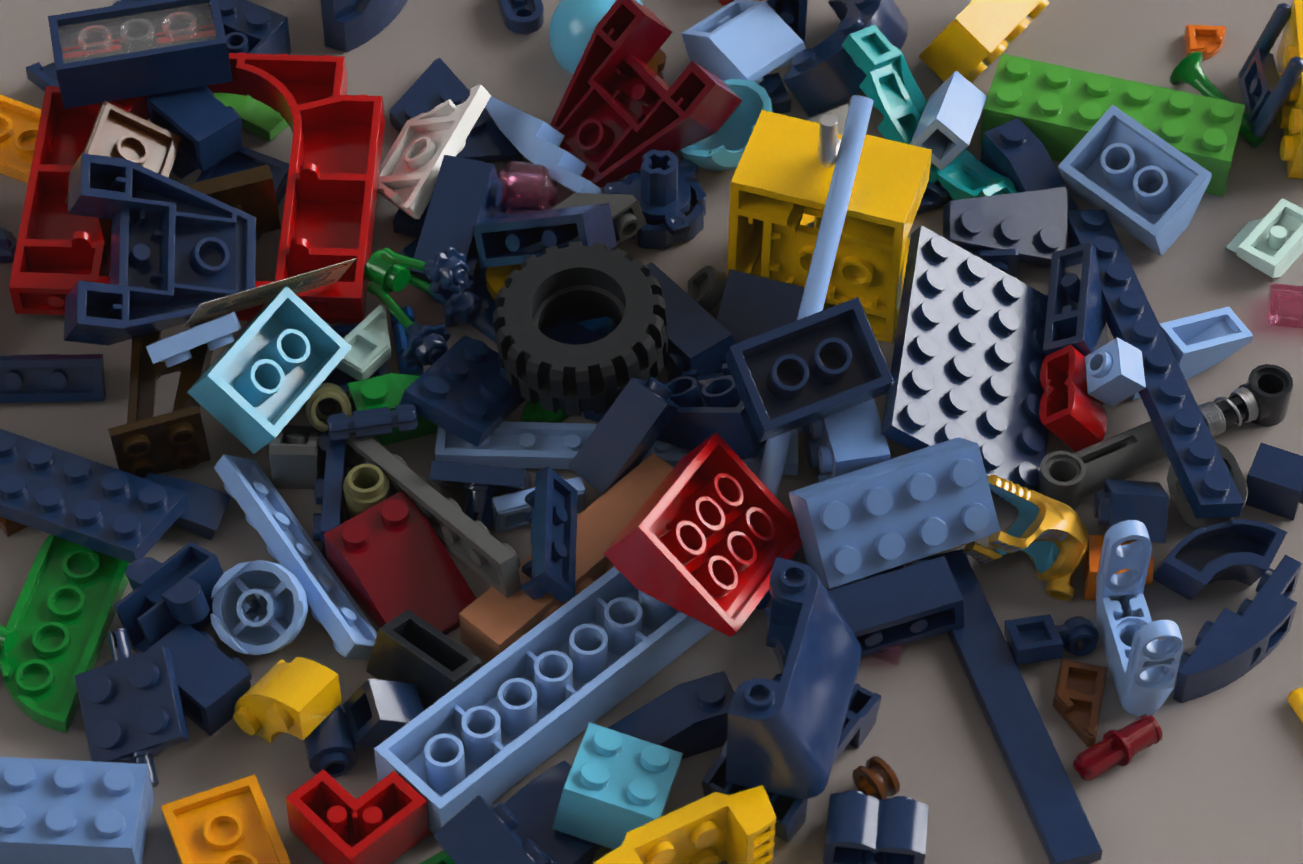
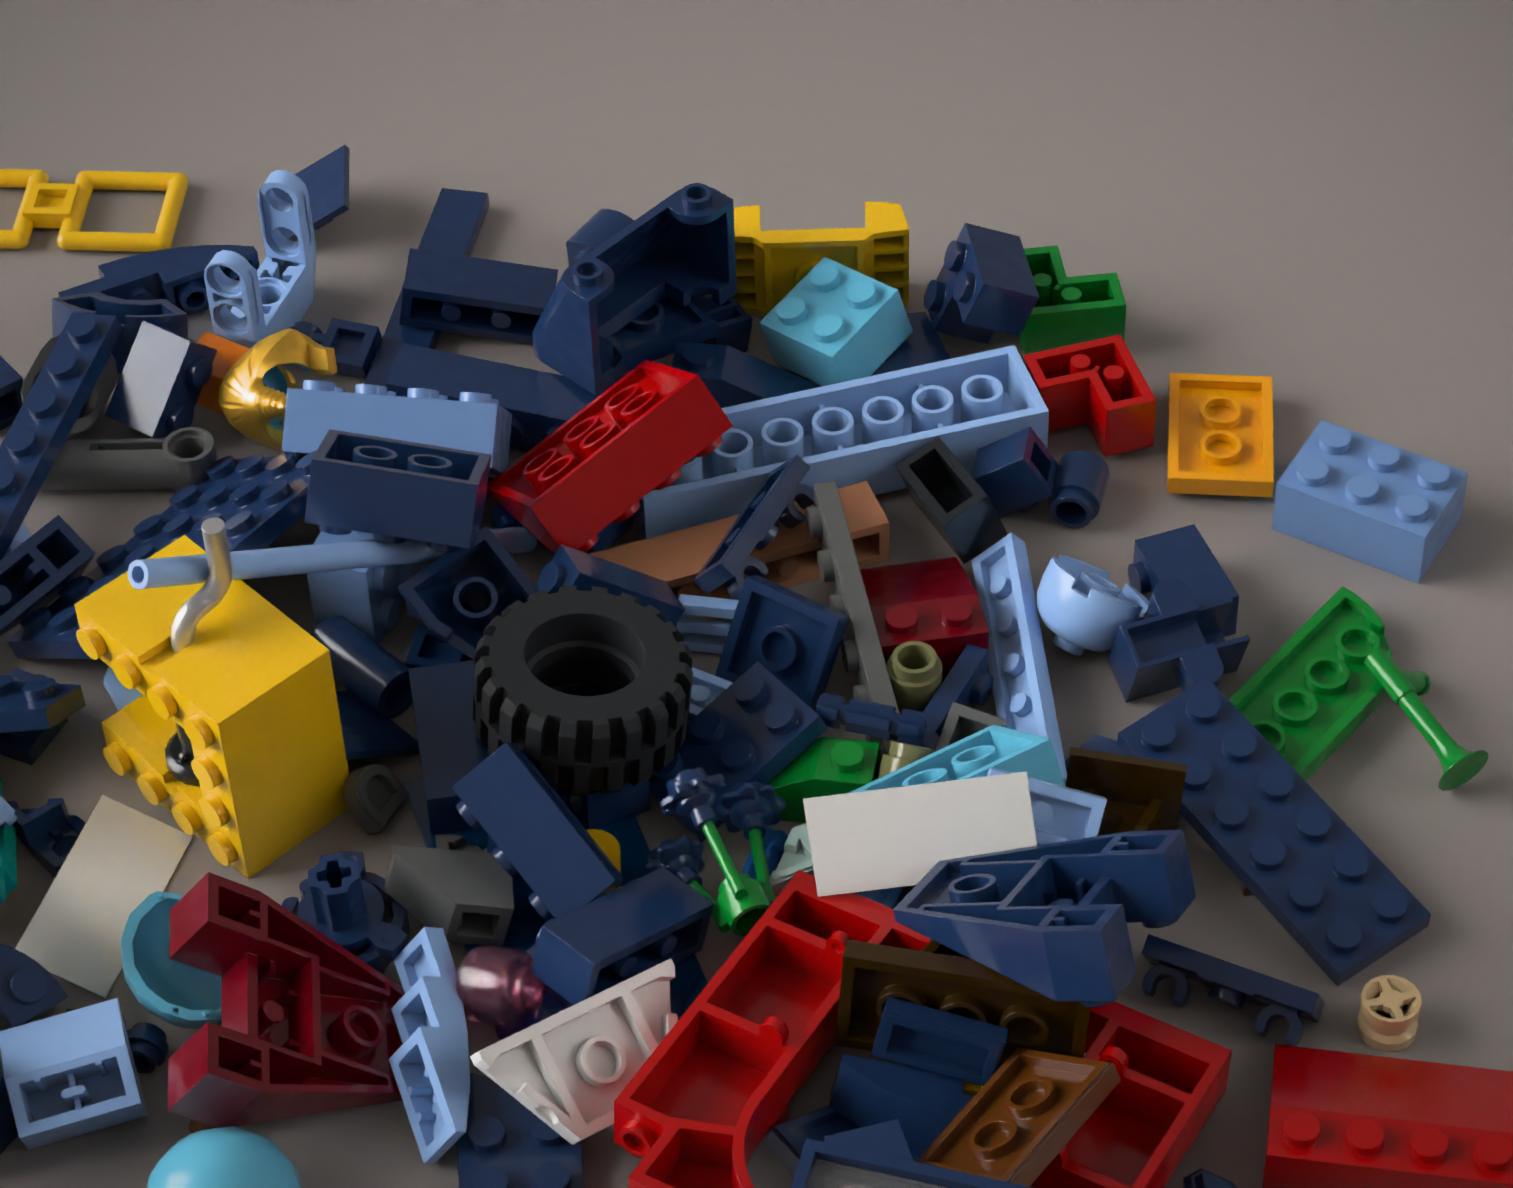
camera: 150 degrees left, 5 degrees down
(131, 705) = (1268, 564): dark blue plate -> none
(289, 700) = (1105, 499): yellow brick -> none
(958, 715) = (474, 295): none -> dark blue brick
(1066, 404) = (115, 508): red brick -> none
(1080, 697) = (348, 301): reddish brown tile -> none
(1114, 372) = (54, 486): light blue plate -> none
(1118, 747) = (360, 249): dark red axle -> none
(1202, 774) = (327, 189): none -> dark blue piece

